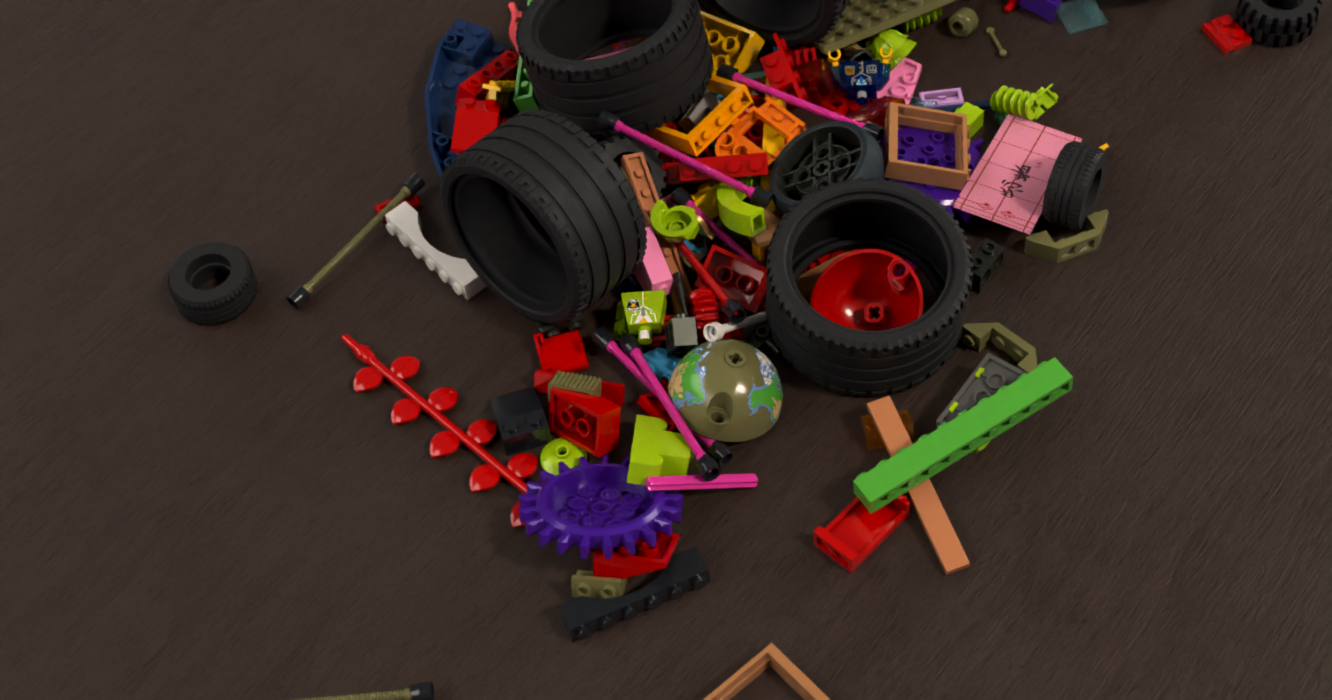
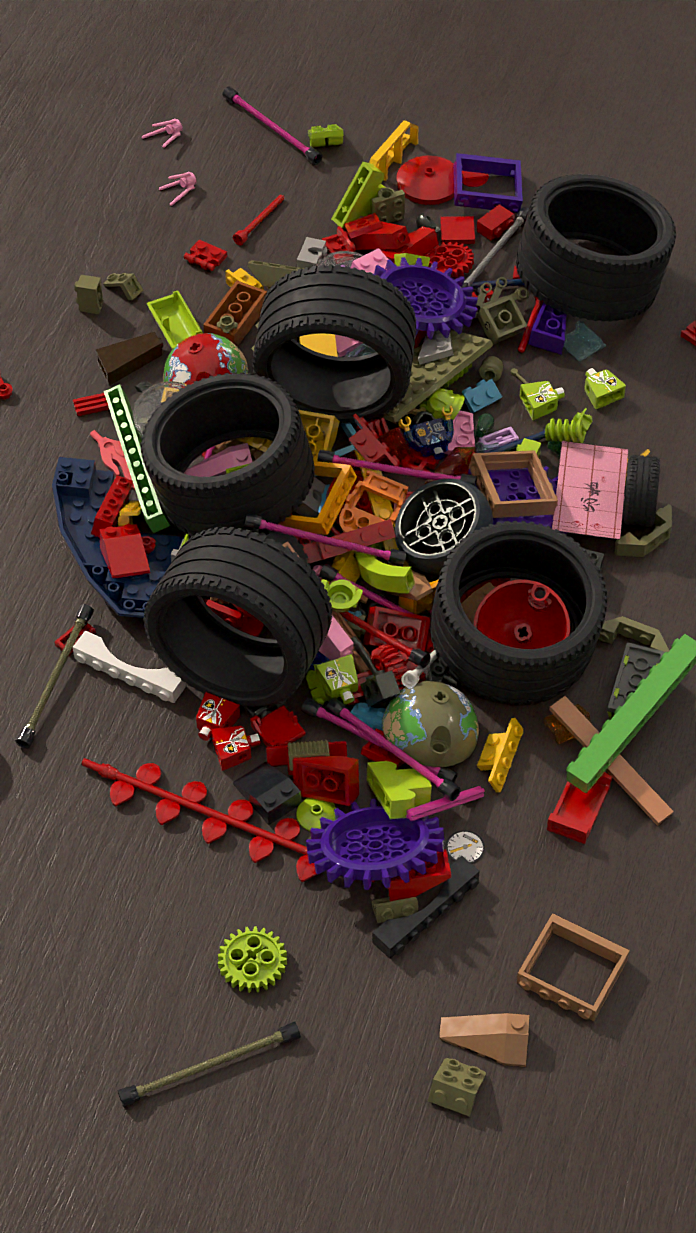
camera: 25 degrees left, 0 degrees up
(425, 615) = (252, 959): none -> lime gear
(501, 324) = (214, 714): none -> red torso
(504, 360) = (233, 745): none -> red torso
(712, 538) = (466, 844): none -> white sticker
(794, 443) = (499, 753): none -> yellow bracket
(929, 79) = (484, 424): none -> clear green cone
(939, 48) = (481, 396): none -> dark azure bracket
(1006, 64) = (540, 398): none -> lime torso
(1084, 67) = (603, 388): none -> lime torso

